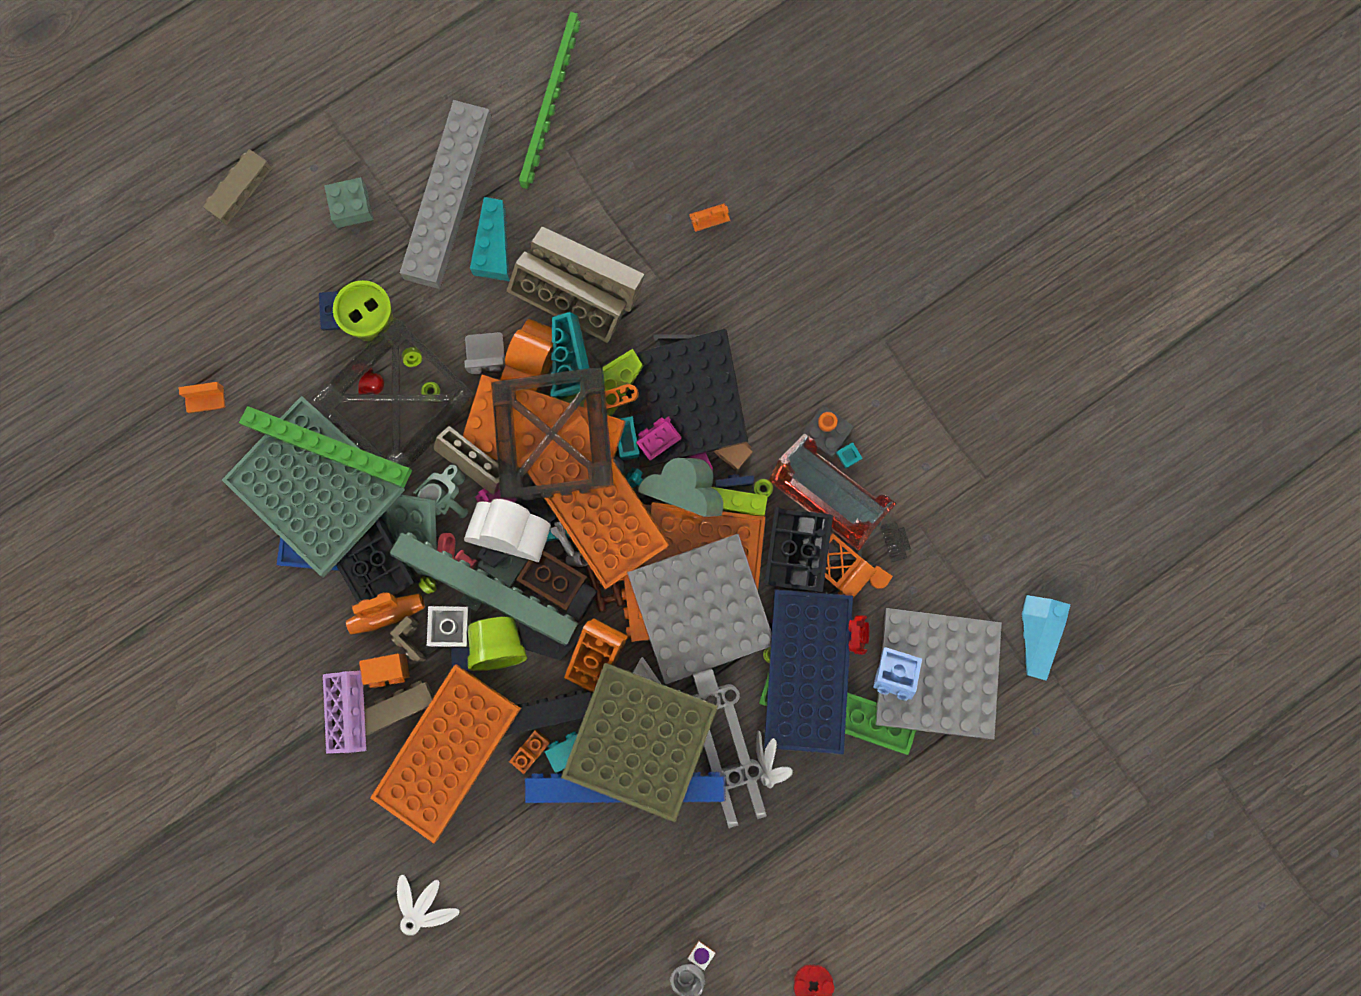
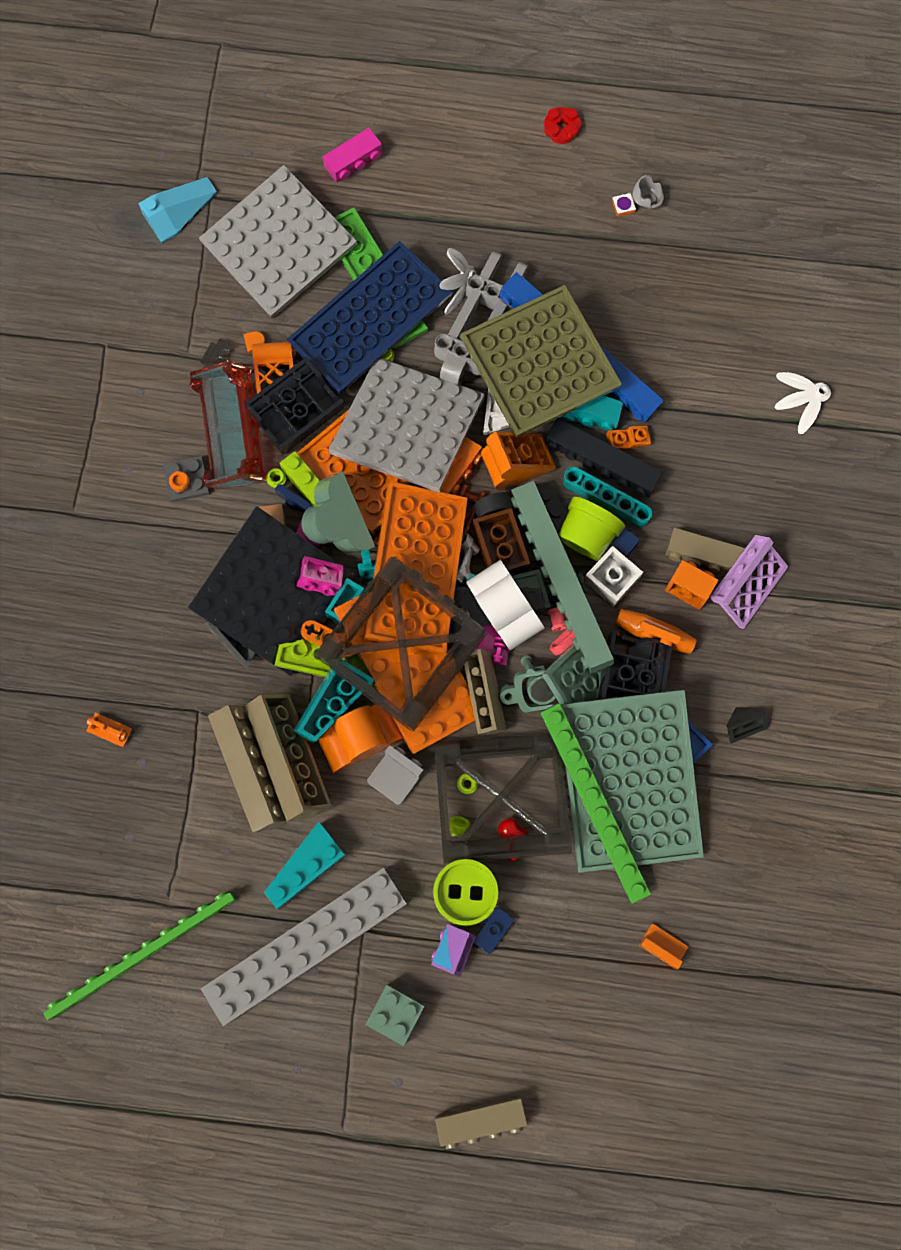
camera: 135 degrees left, 5 degrees down
(267, 603) = (745, 723): none -> pearl dark grey slope
(343, 269) = (453, 950): none -> medium lavender brick
(399, 633) = (653, 600): dark tan bracket -> none
(427, 584) = (604, 624): lime plate -> none
(445, 753) = (694, 483): orange plate -> none
(515, 683) = (612, 505): none -> teal beam
(849, 455) = (188, 445): teal plate -> none
(860, 634) = (309, 311): red plate -> none
(897, 674) = (308, 257): light blue plate -> none
(951, 800) = (352, 155): none -> dark pink brick

